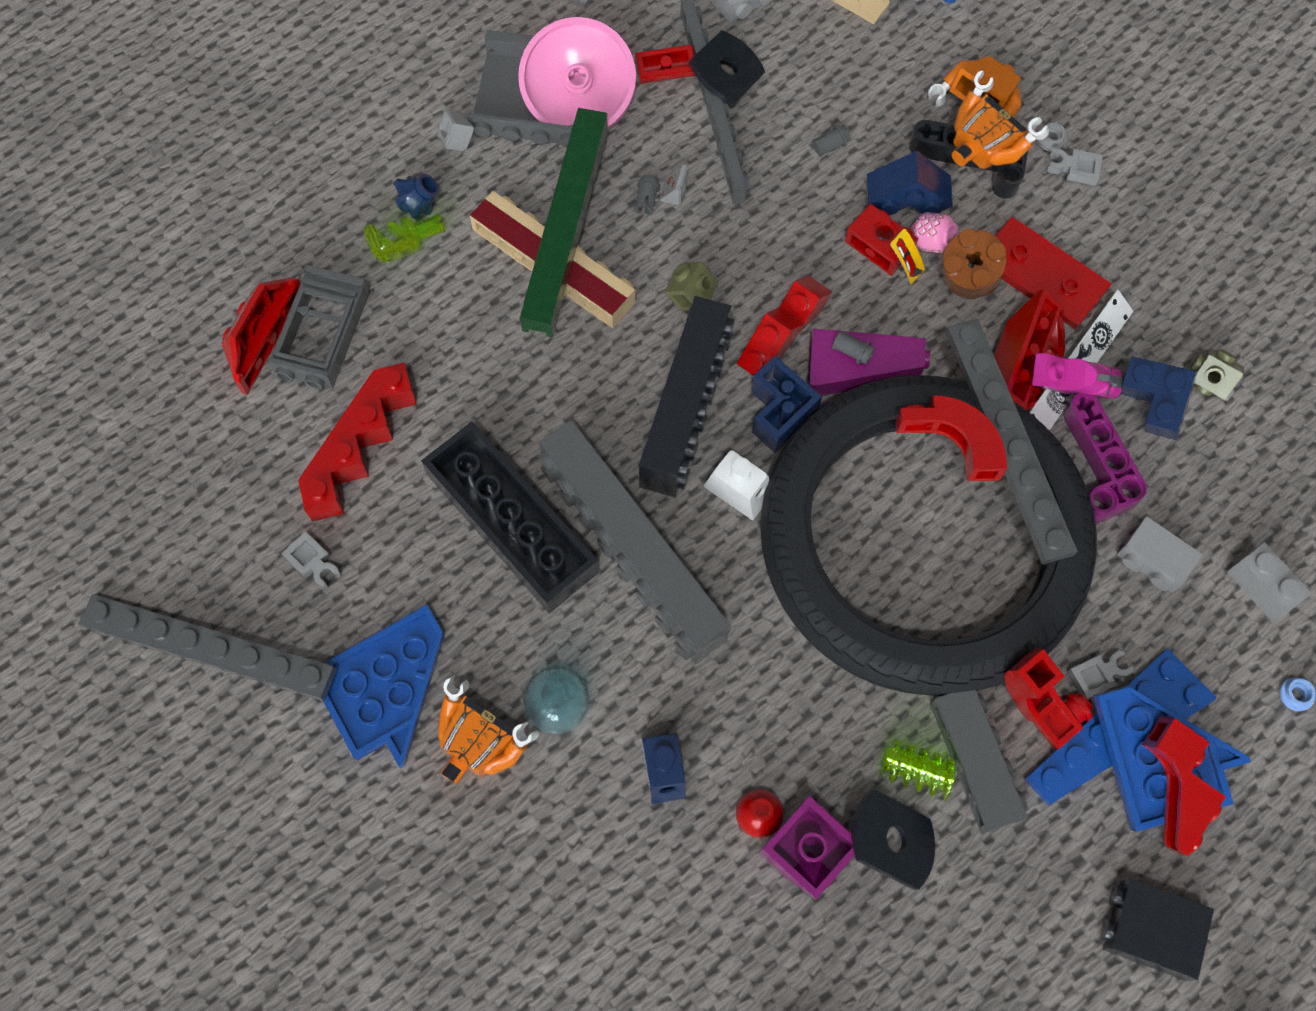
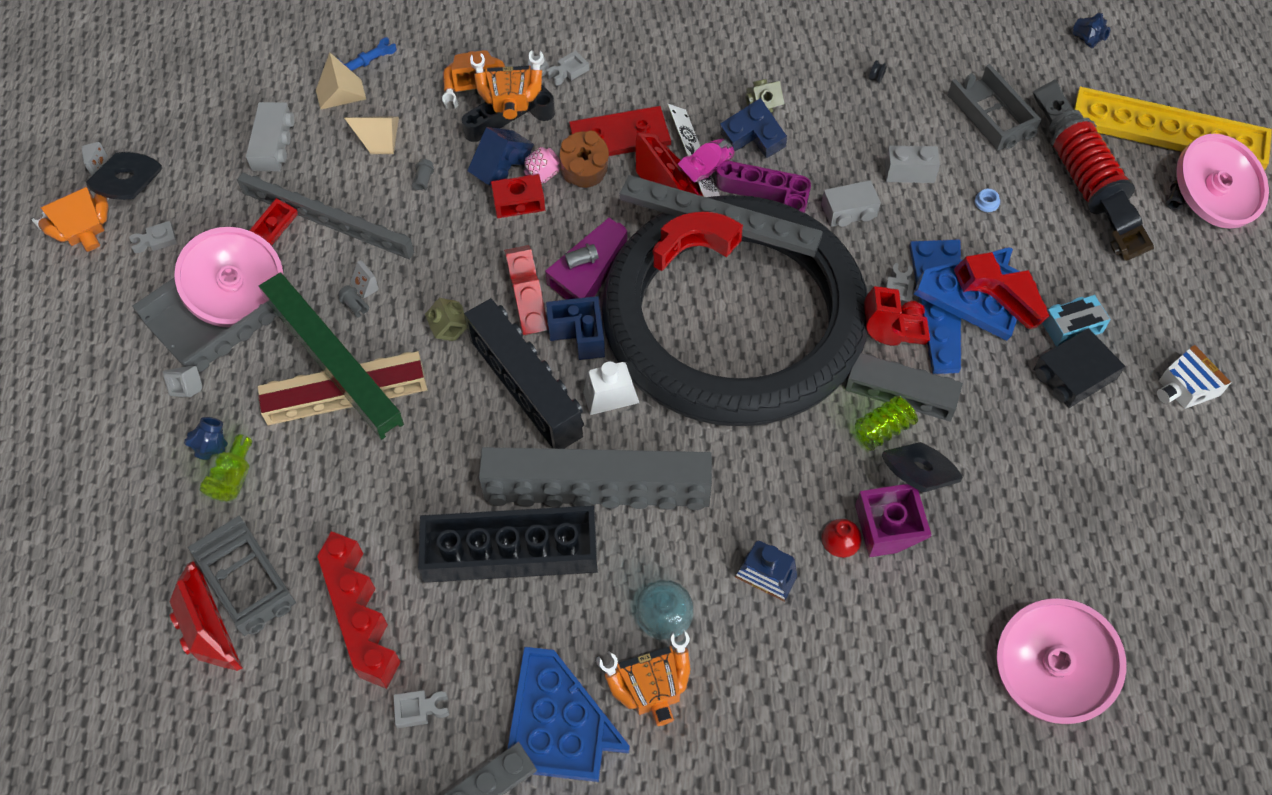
camera: 50 degrees left, 10 degrees down
(715, 79) = (299, 196): black piece -> none
(842, 63) = (376, 132): none -> tan slope
(908, 255) = (543, 186): yellow sticker -> none
(1217, 886) = (1074, 317): none -> brick

